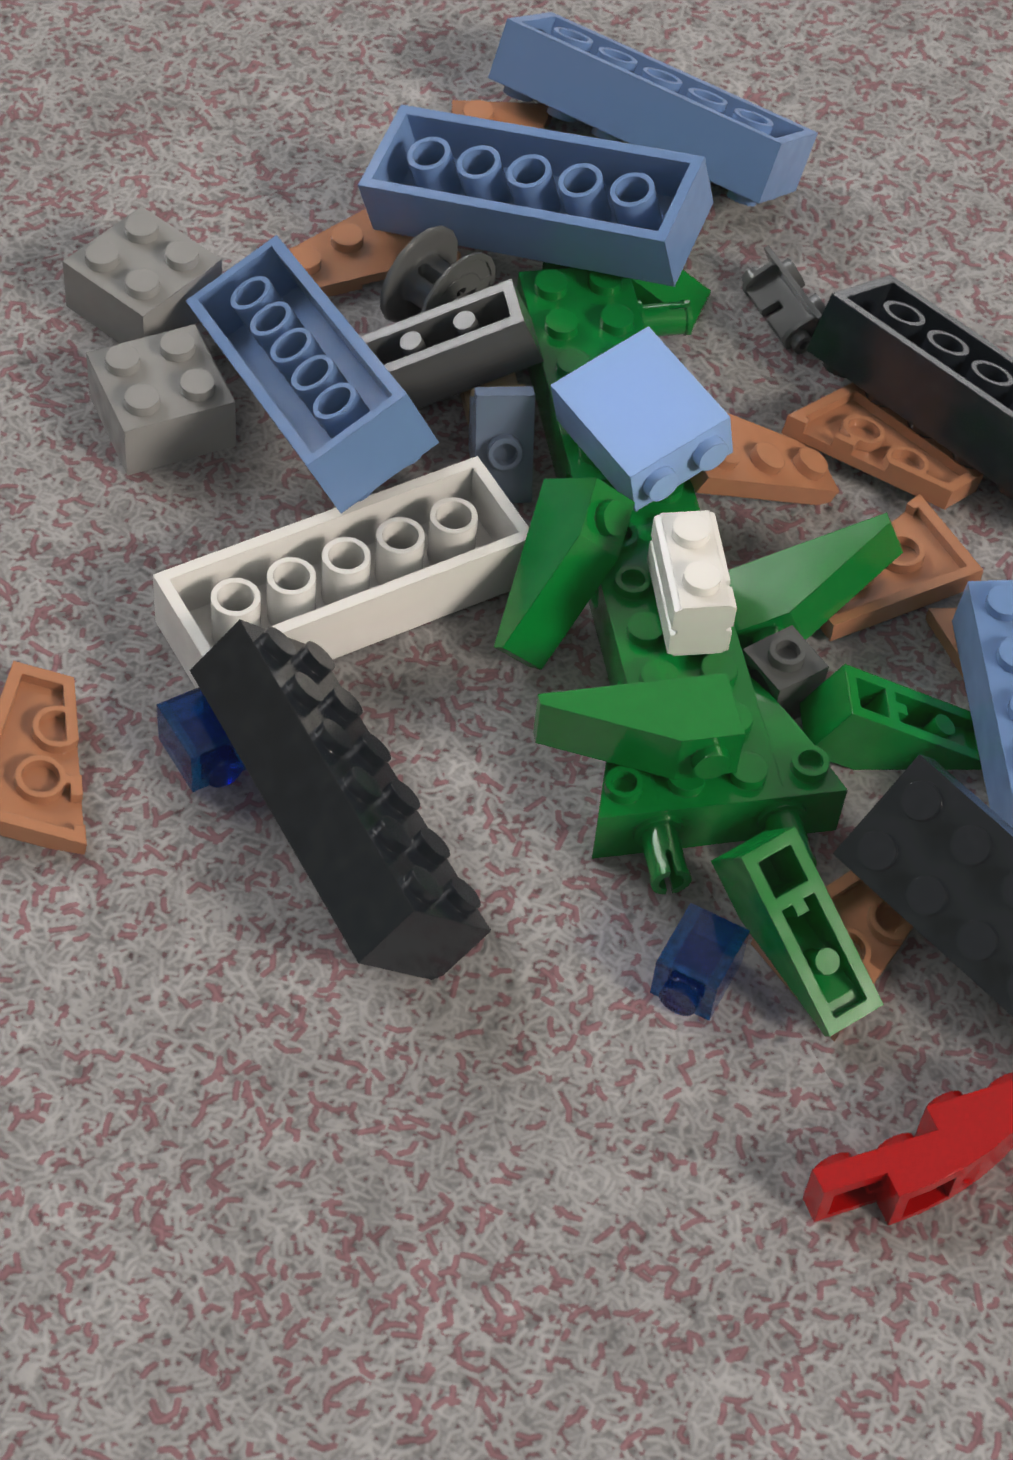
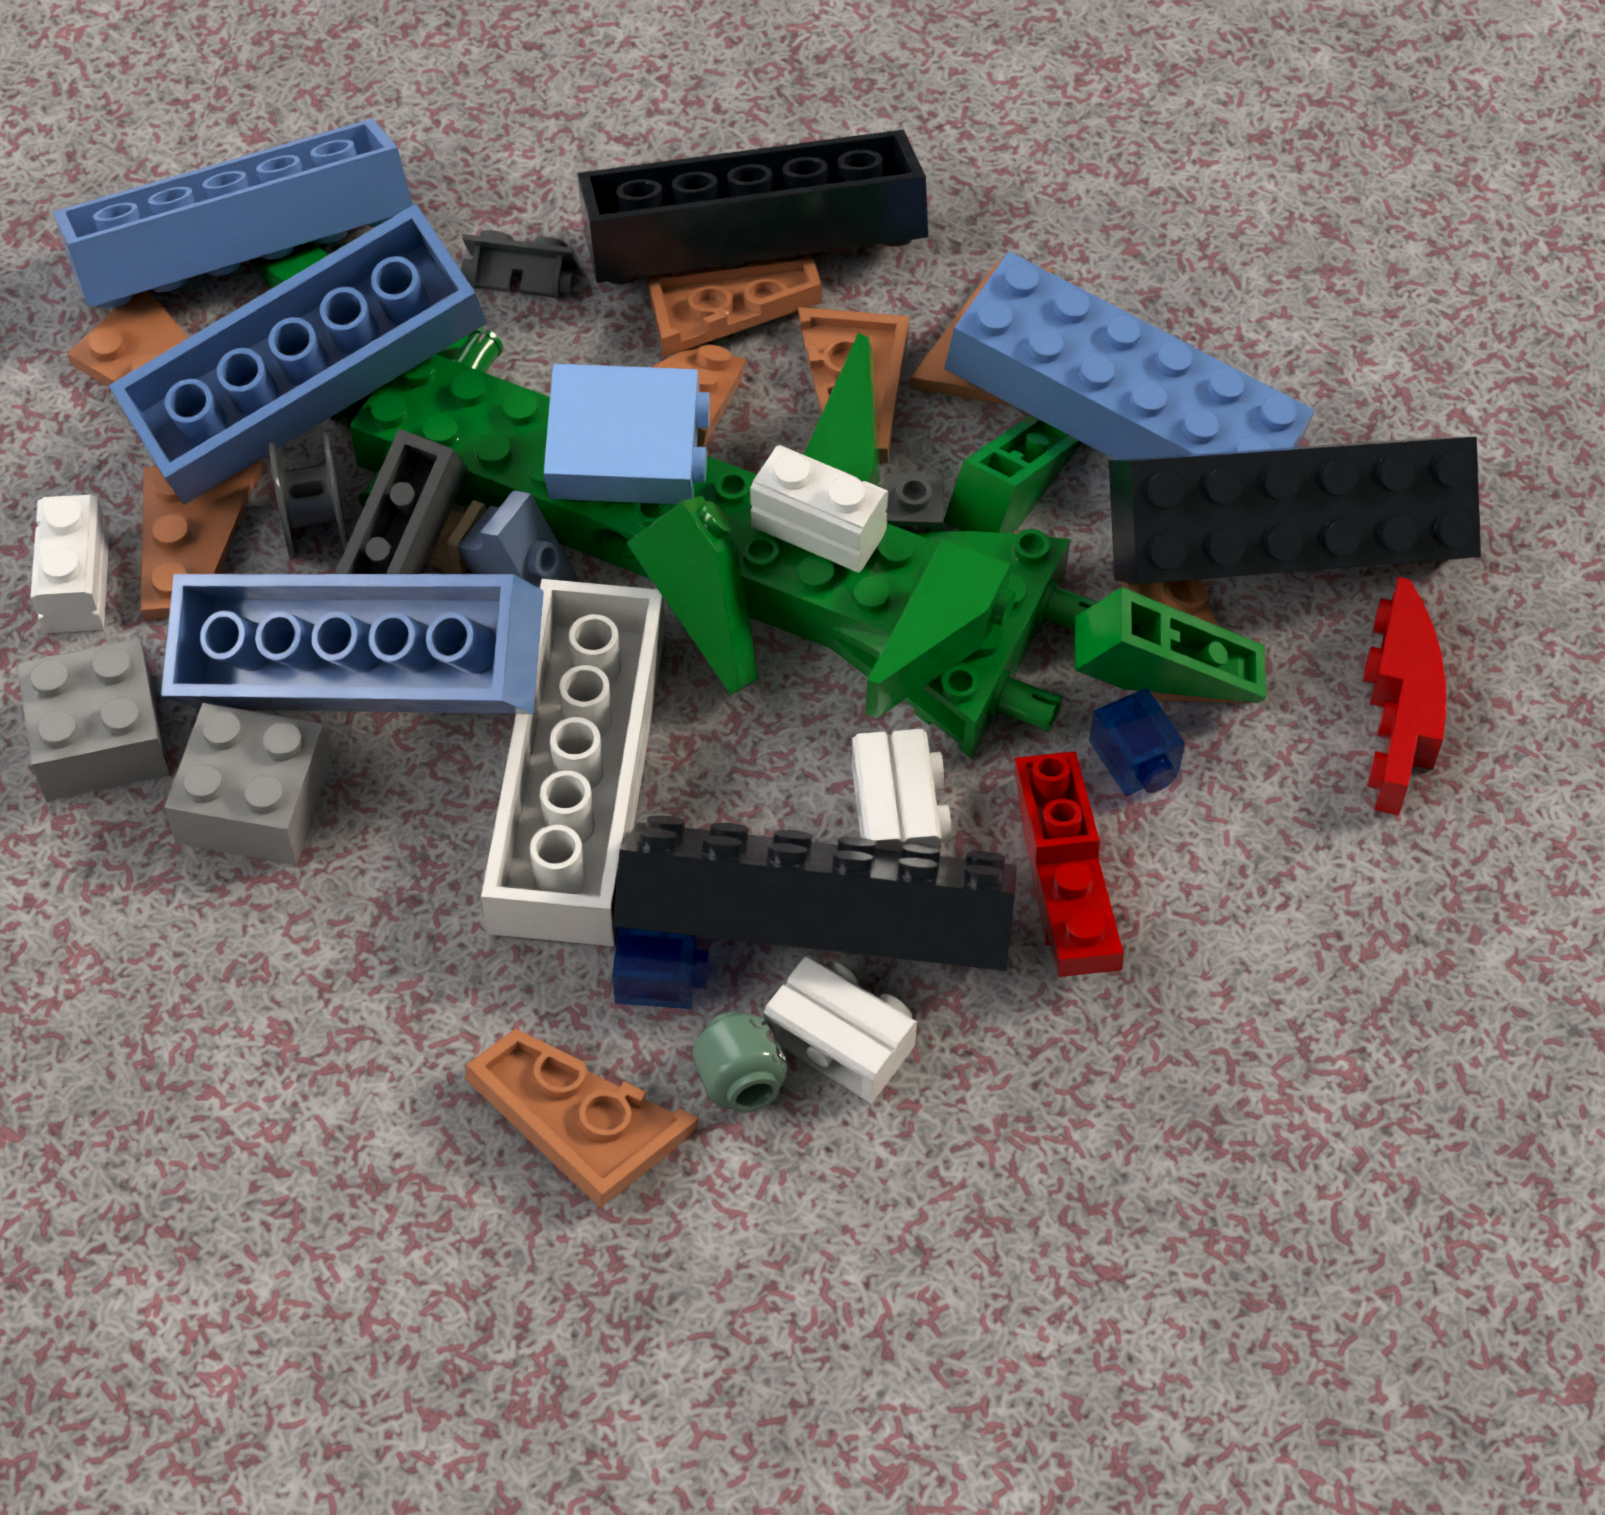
camera: 50 degrees left, 5 degrees up
(153, 840) = (740, 1062): none -> sand green head
(241, 894) = (841, 1026): none -> white brick
(266, 198) = (70, 564): none -> white brick
(498, 816) = (897, 788): none -> white brick
(529, 978) = (1066, 865): none -> red slope

